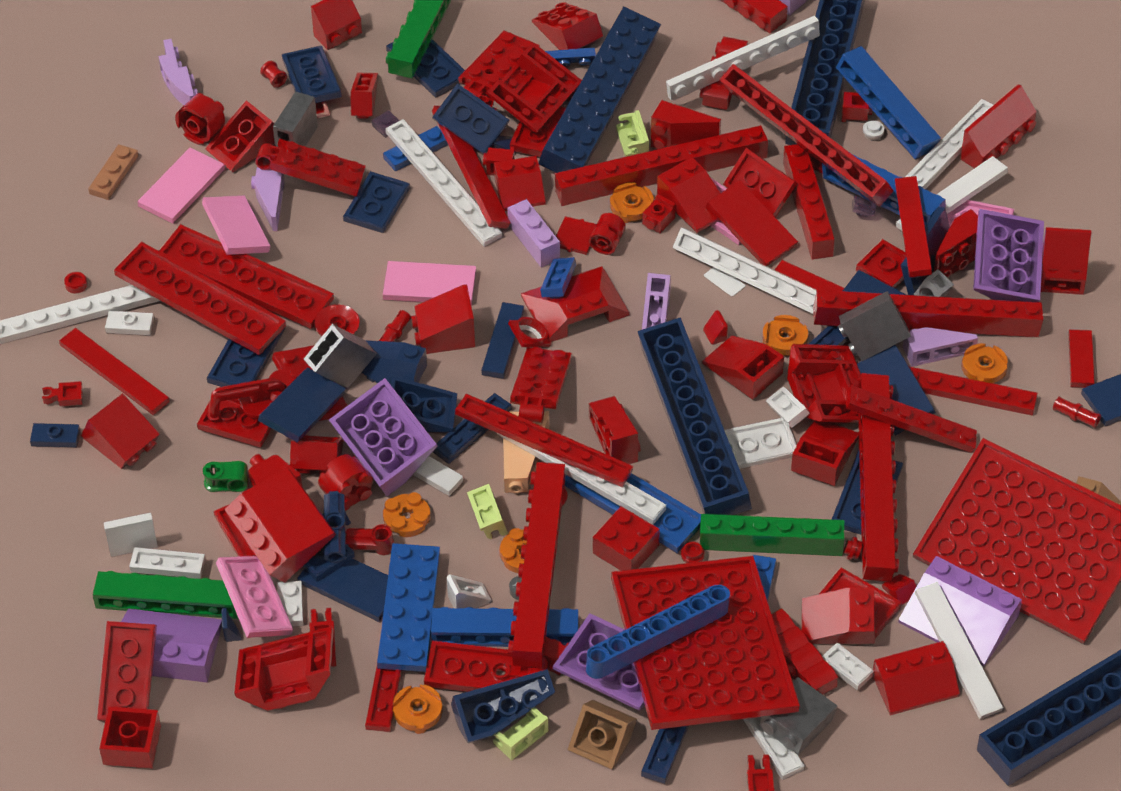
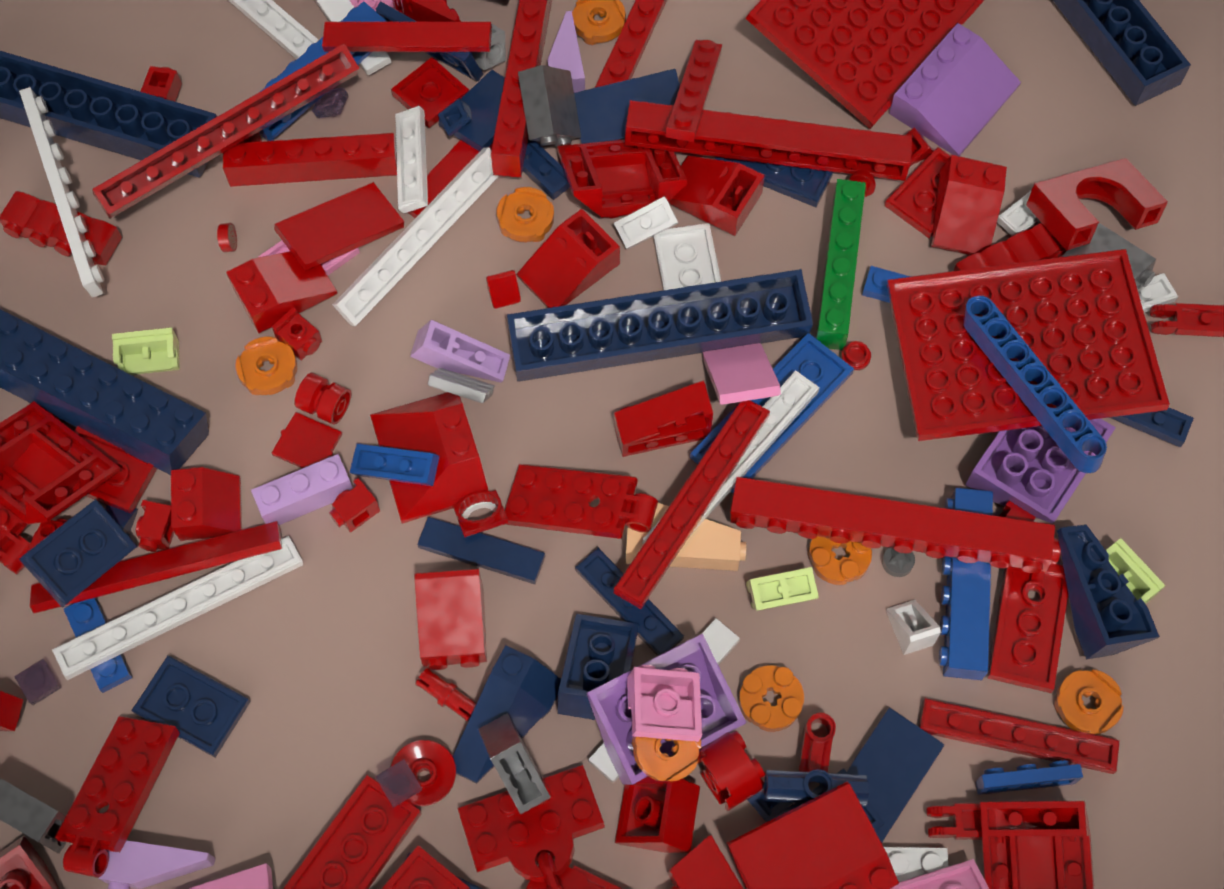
camera: 85 degrees left, 15 degrees up
(302, 405) = (597, 825): dark blue tile -> none
(326, 304) = (398, 783): none -> plate
(356, 443) = (660, 765): none -> orange plate
(356, 667) = (1028, 777): none -> blue plate
(378, 416) = (665, 703): none -> bright pink plate
(408, 607) = (934, 701): blue plate -> none
(425, 280) = (361, 641): bright pink tile -> none
(527, 263) = (354, 507): none -> red brick
(601, 733) = (1128, 481): medium nougat slope -> none
(626, 540) = (840, 425): red brick -> none
(633, 313) = (461, 385): none -> light grey tile
(643, 168) = (213, 326): red brick -> none
(658, 469) = (741, 373): none -> bright pink tile
(679, 125) = (159, 285): red slope -> none
(724, 281) = (420, 274): white sticker -> none
(729, 162) = (227, 237): none -> red tile
(763, 180) = (269, 202): red plate -> none
(818, 257) = (411, 160): none -> white tile
(850, 670) = (1116, 183): none -> red arch
(861, 277) = (455, 116): none -> dark blue slope
(873, 130) = (201, 78): white plate -> none
(888, 102) = (173, 45): blue brick -> none
(916, 678) = (1042, 141): red slope -> none
(964, 659) = (1014, 97): white tile -> none

